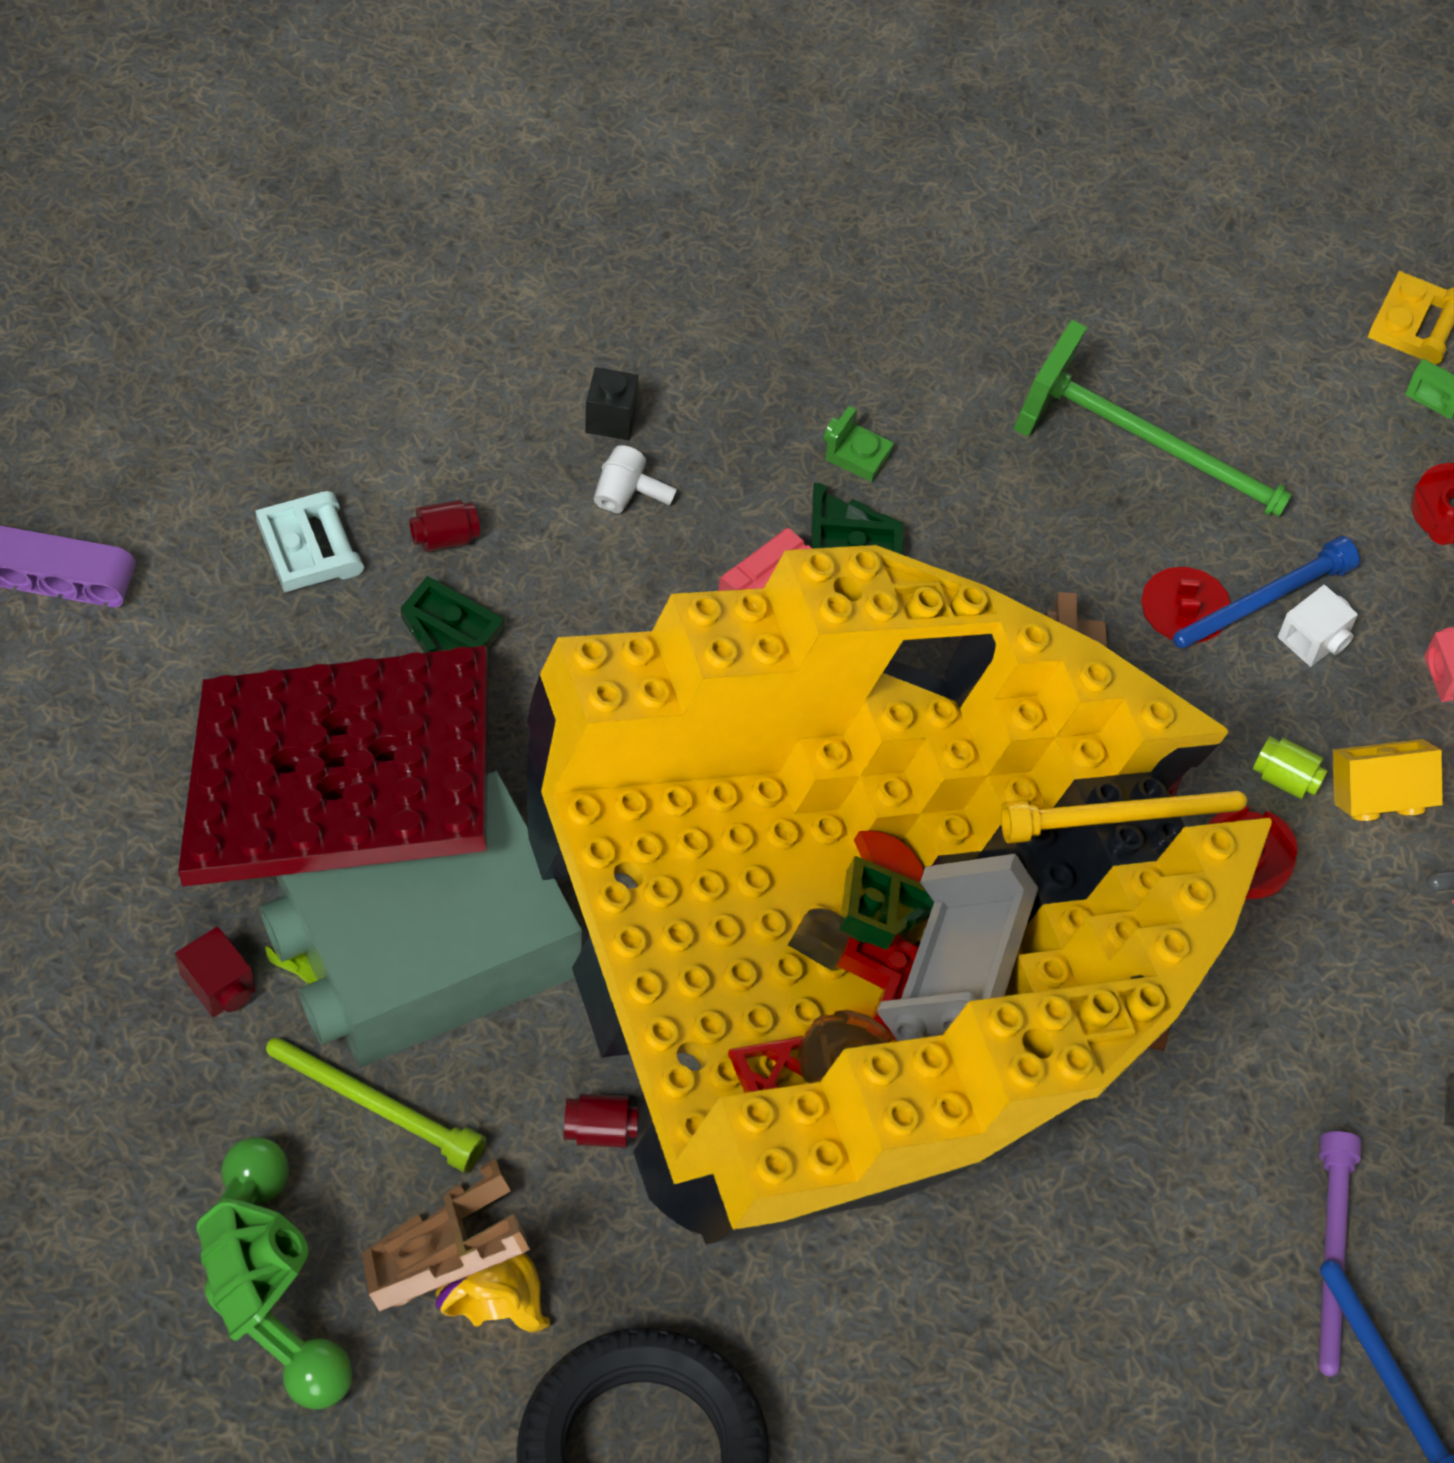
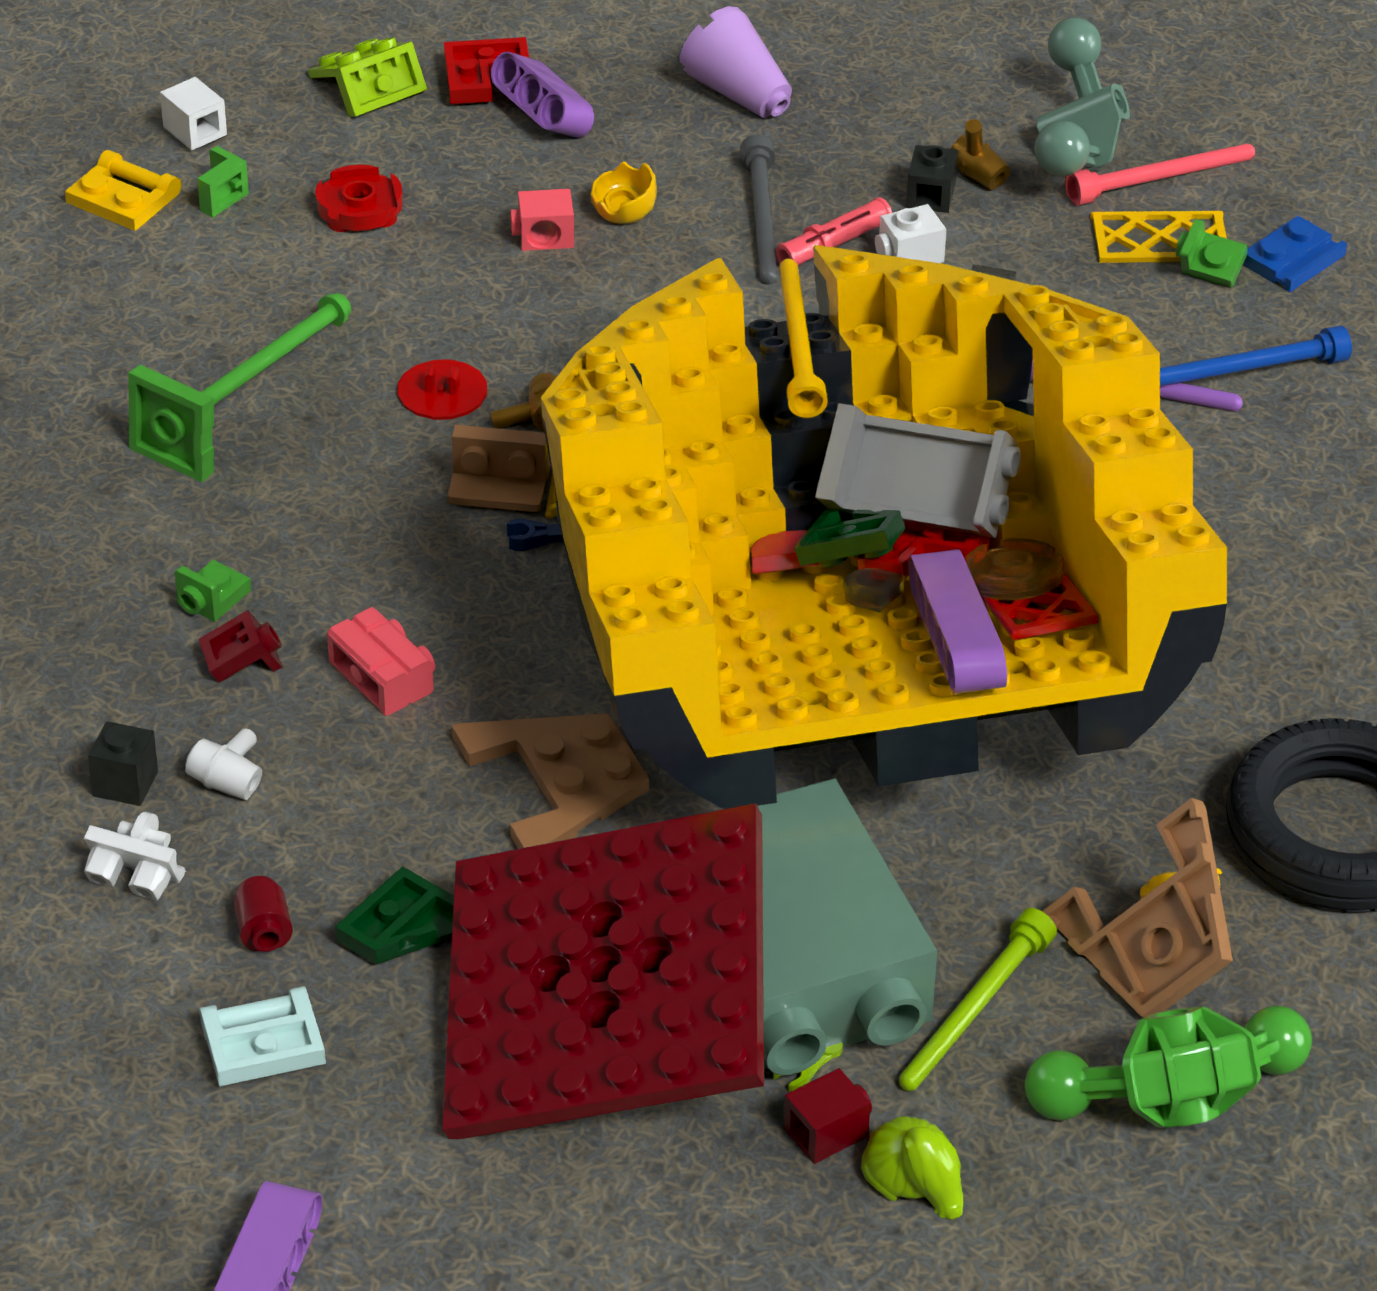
camera: 80 degrees left, 15 degrees down
(164, 1049) = (914, 1162): none -> lime hair
(509, 428) = (137, 848): none -> white hips
(600, 1120) = (1004, 829): dark red brick -> none
(731, 992) = (957, 621): none -> medium lavender beam
(780, 476) = (239, 645): none -> dark red bracket
(851, 524) = (324, 598): dark green wing -> none
(1186, 683) = (526, 411): none -> pearl gold piece
(1318, 626) = (491, 298): white brick -> none
(1336, 557) = (411, 280): blue piece -> none
(1387, 778) = (664, 258): yellow brick -> none

